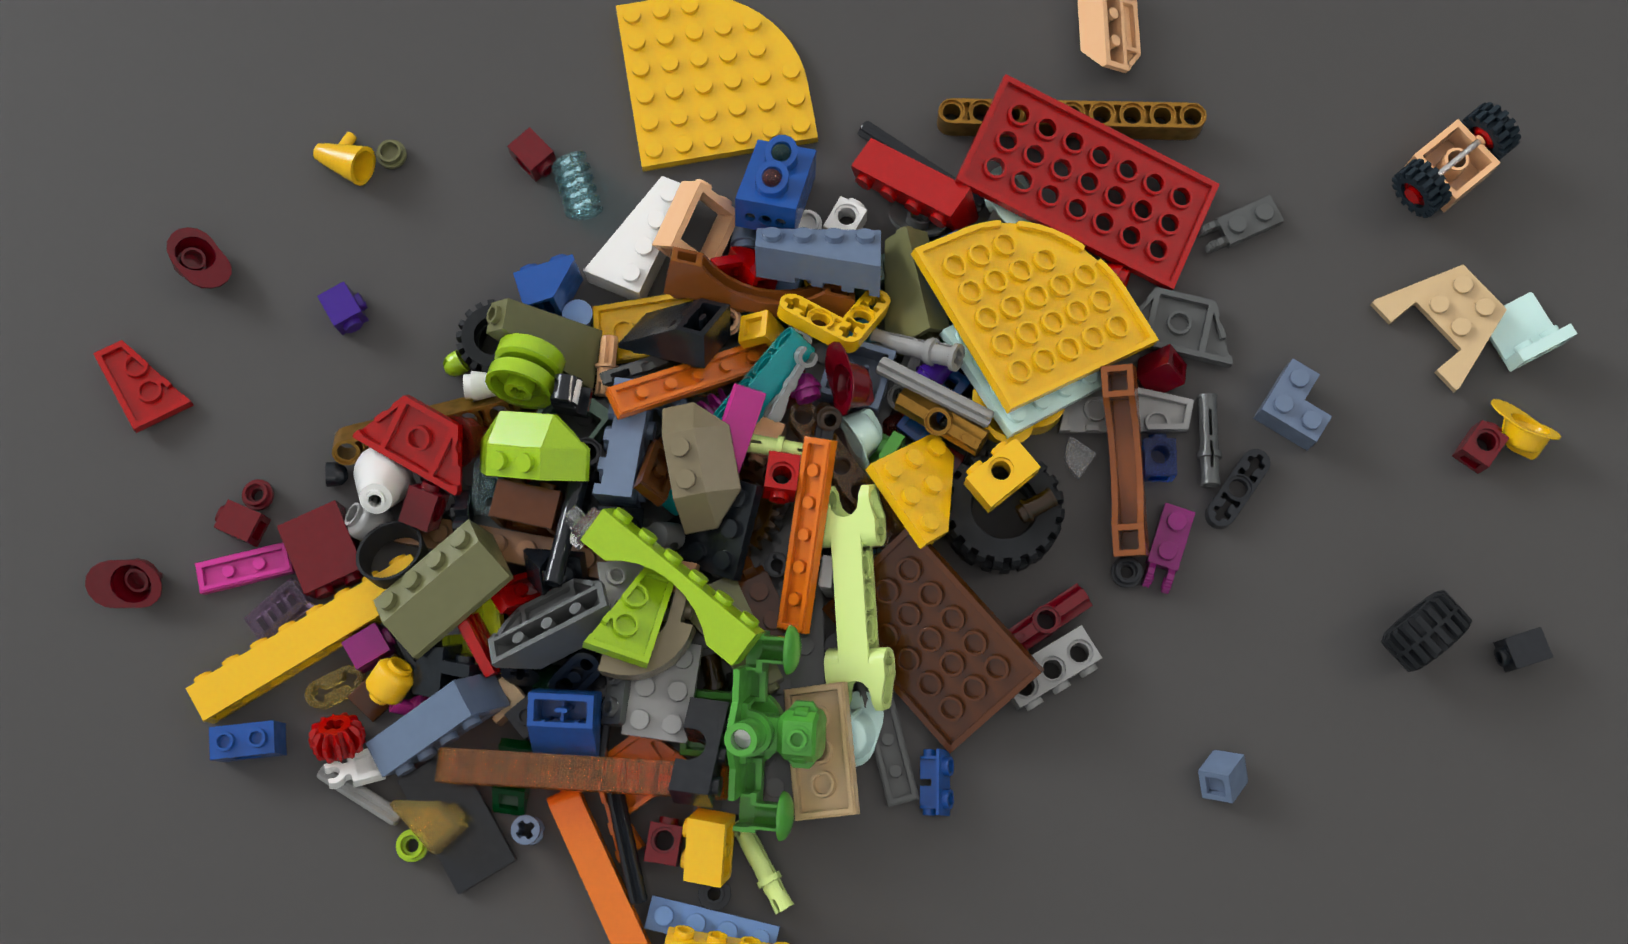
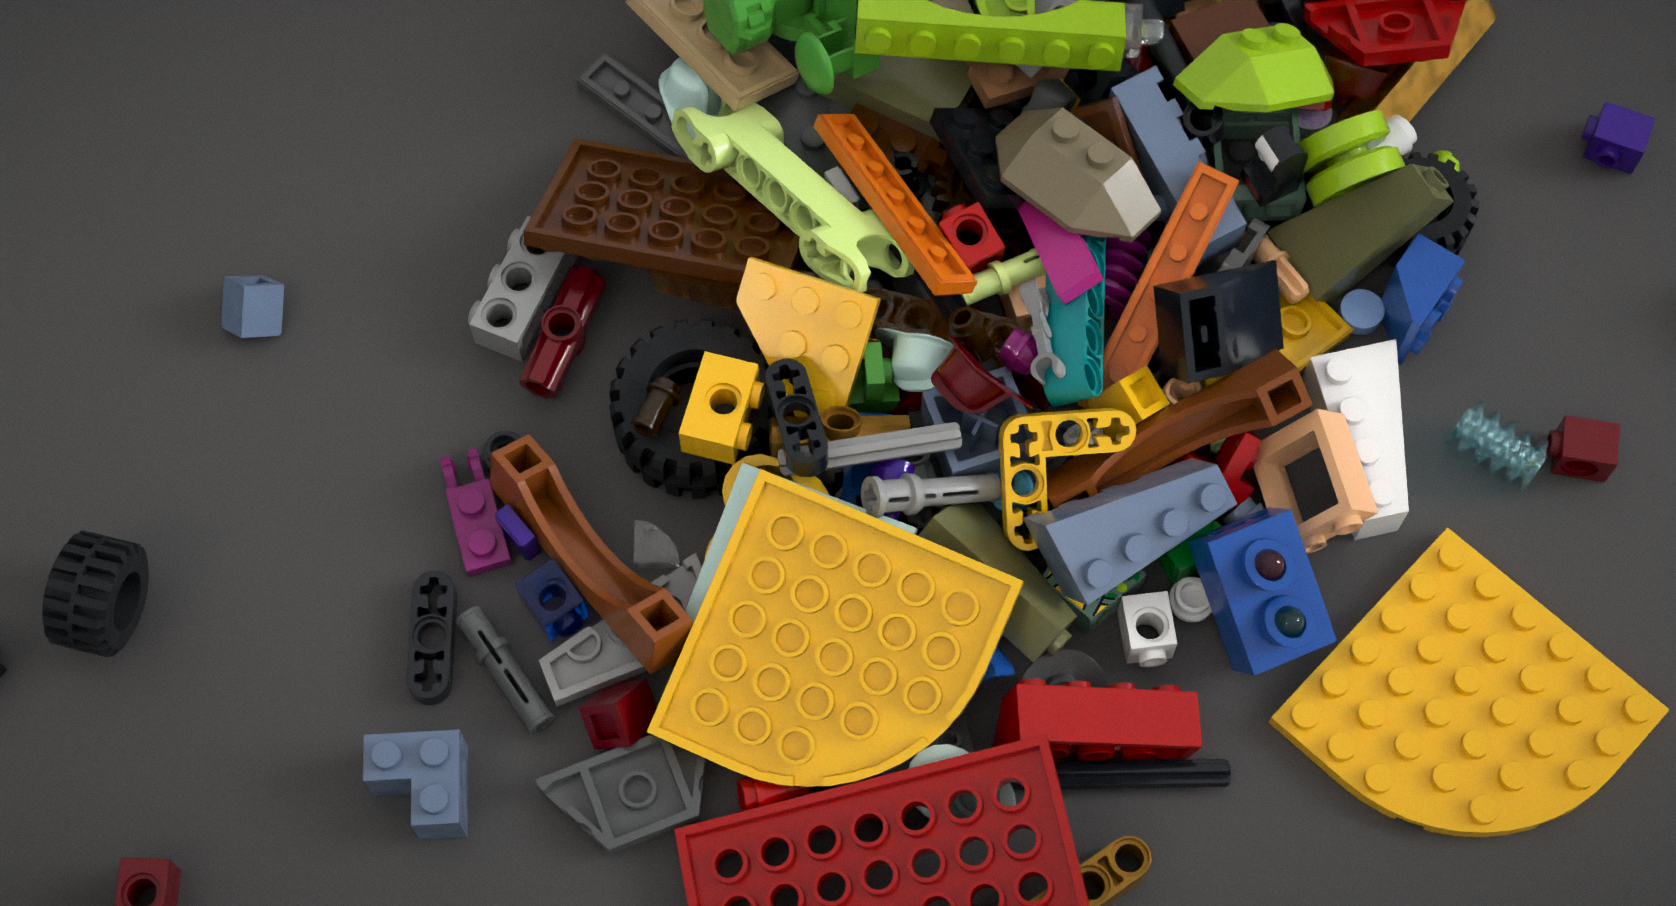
camera: 140 degrees right, 10 degrees down
(938, 797) = (559, 94): blue hinge -> none
(950, 451) = (792, 434): none -> black beam
(1154, 512) = (517, 533): none -> dark purple tile

